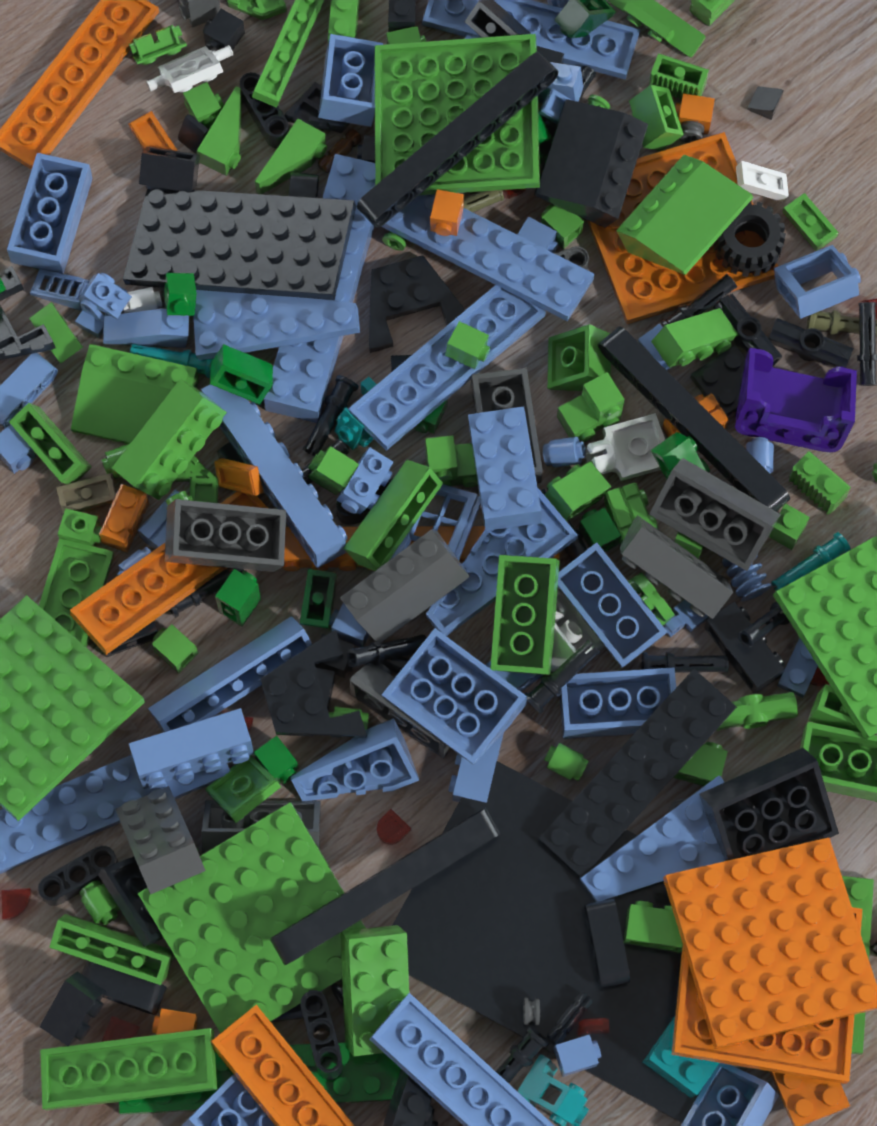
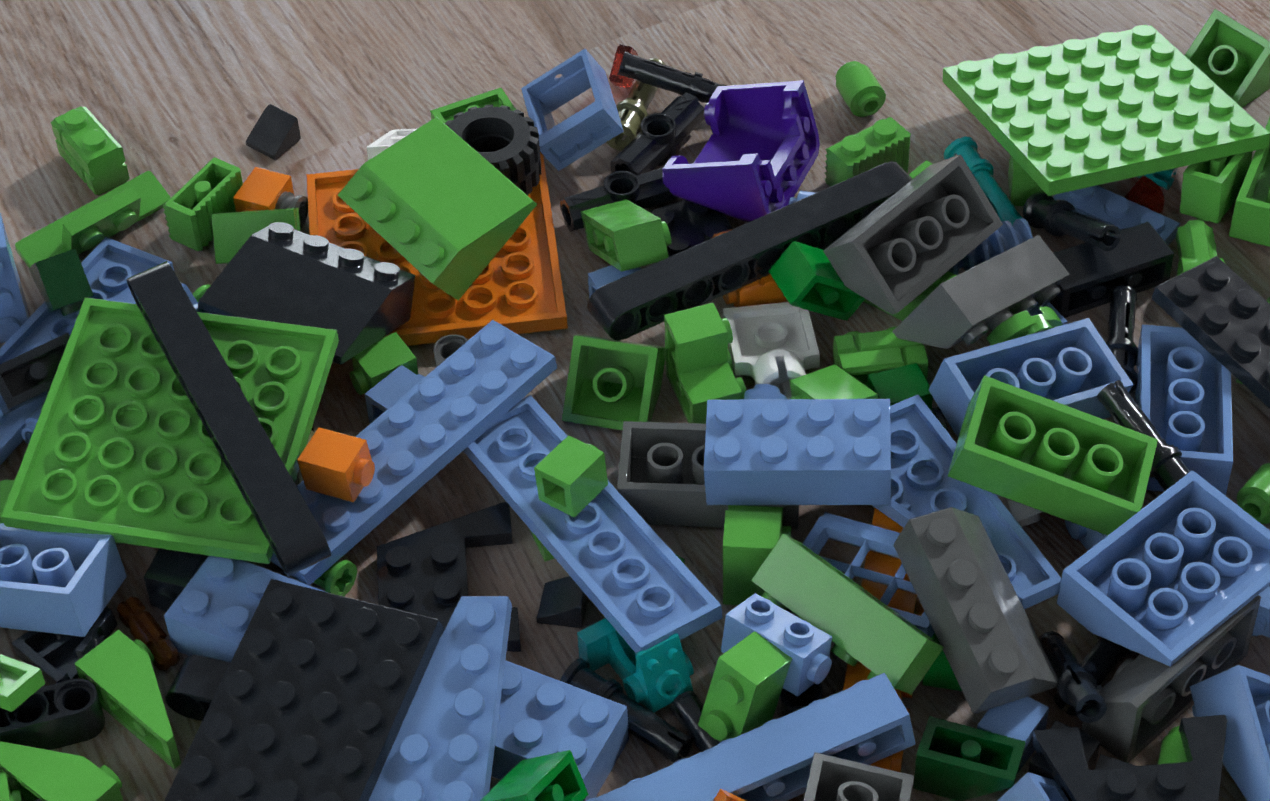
camera: 75 degrees left, 25 degrees down
(703, 301) = (576, 248): black pin -> none

